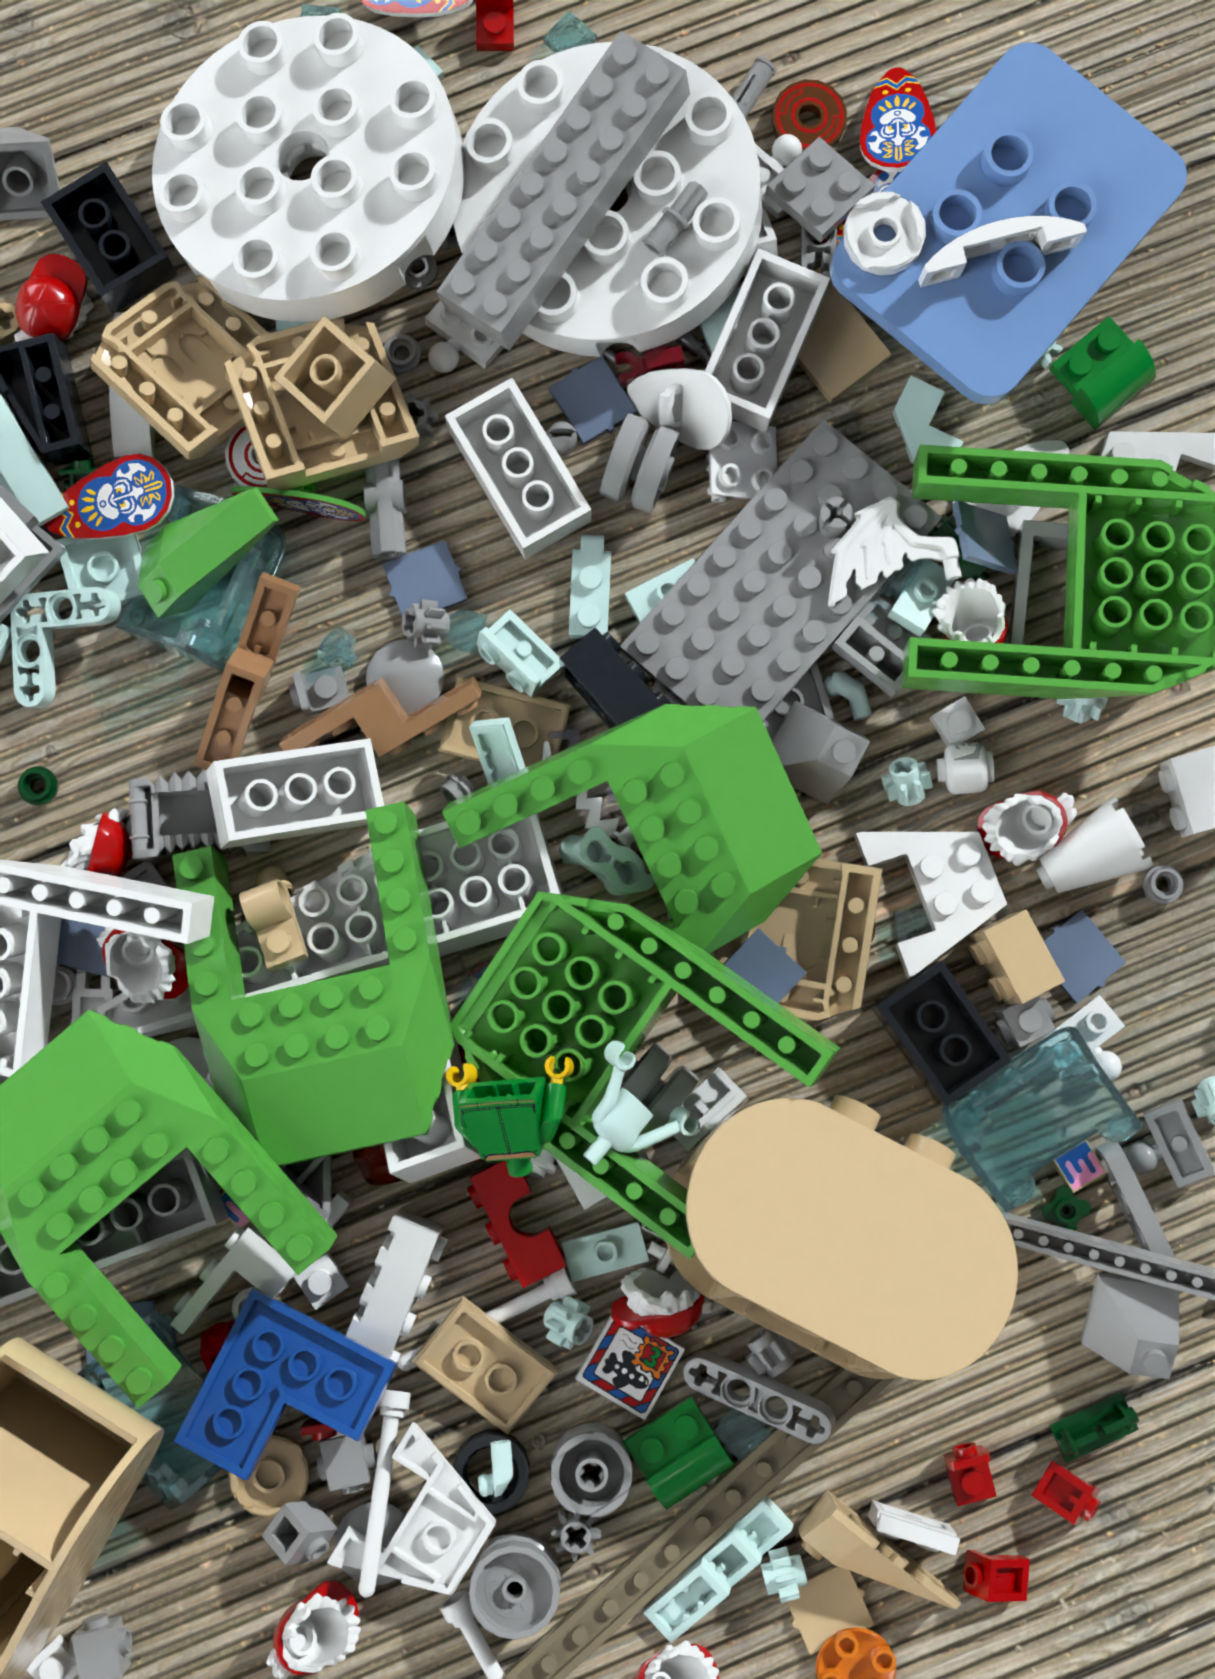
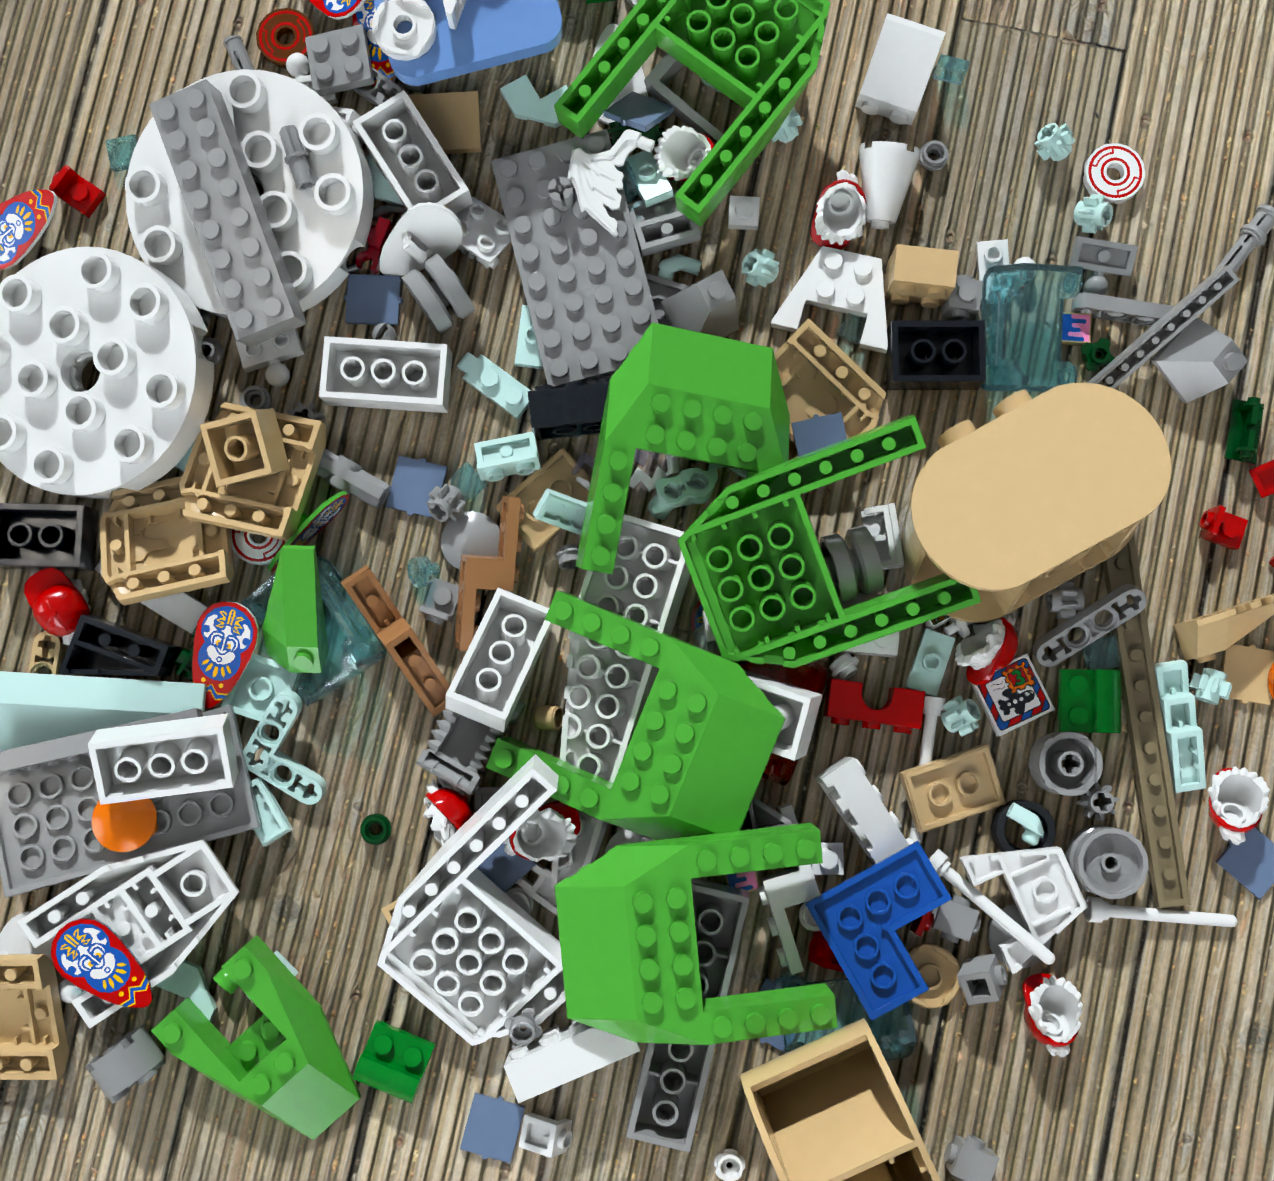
camera: 45 degrees left, 0 degrees up
(273, 918) = (577, 731): tan plate -> none
(509, 1116) = (811, 657): green torso -> none
(622, 1116) = (860, 582): light aqua piece -> none
(921, 1530) = (1239, 581): white plate -> none
(966, 768) = (777, 225): white head -> none
(1082, 955) = (945, 232): sand blue piece -> none

